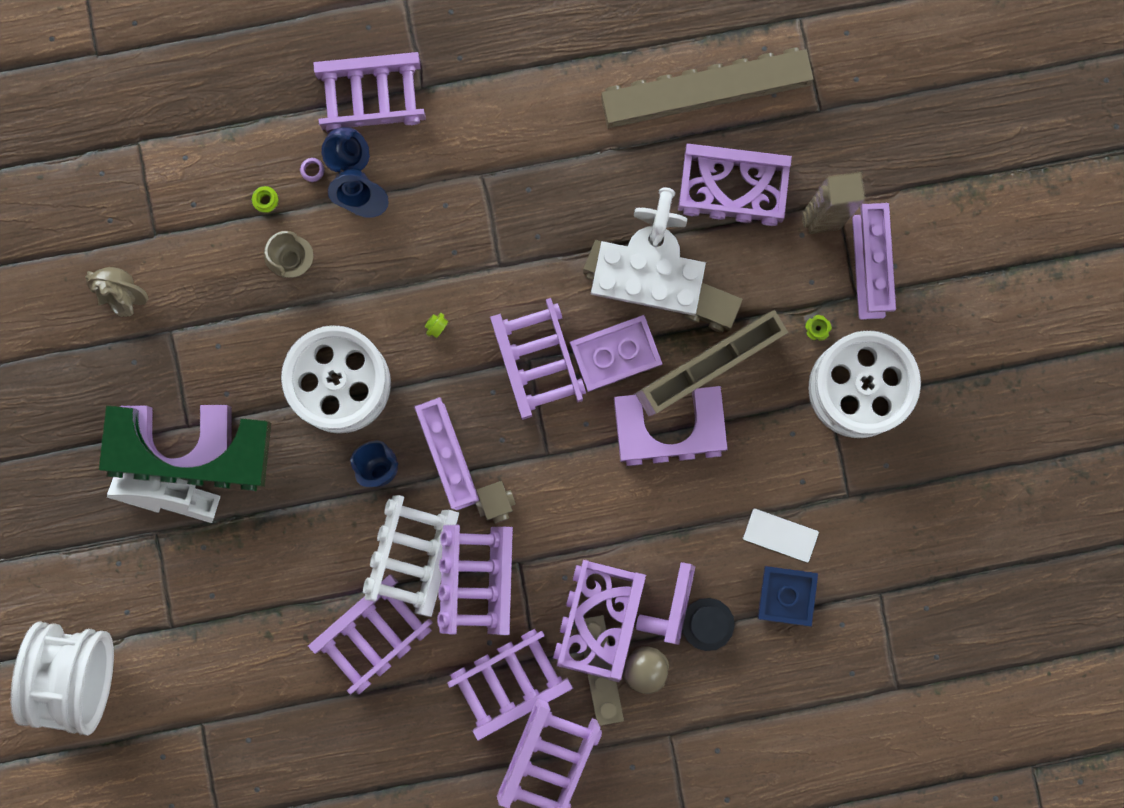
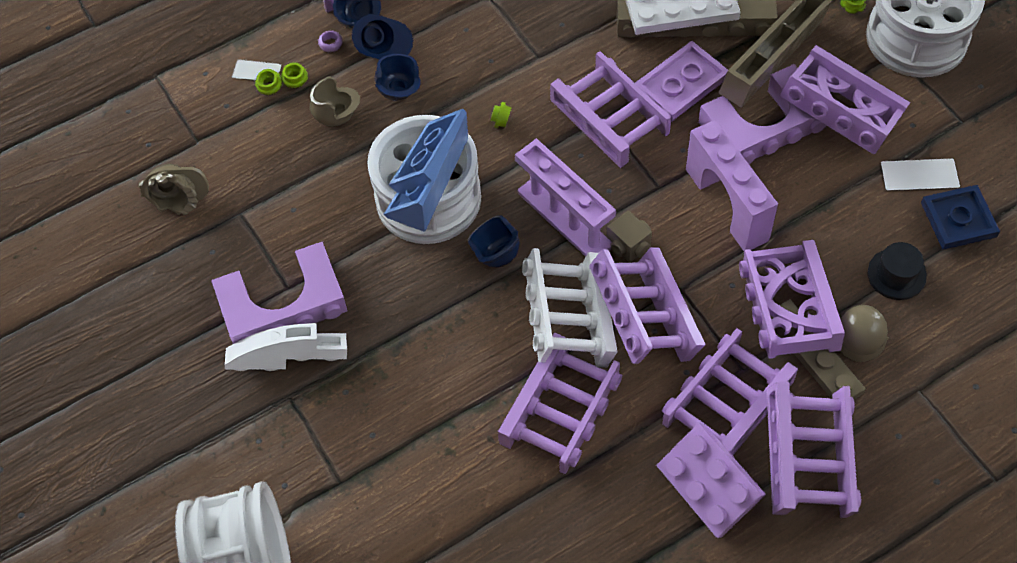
camera: 15 degrees left, 25 degrees down
(127, 452) = (237, 313): dark green arch -> none
(231, 195) = (266, 76): none -> lime plate
(233, 174) = (250, 69): none -> white sticker
(329, 396) = (427, 170): none -> medium blue slope
(354, 251) = (397, 76): none -> dark blue helmet
(459, 751) = (710, 480): none -> lavender plate
(599, 494) = (716, 158): none -> lavender arch
(673, 628) = (866, 281): lavender piece -> none
(720, 452) = (872, 99): none -> lavender fence

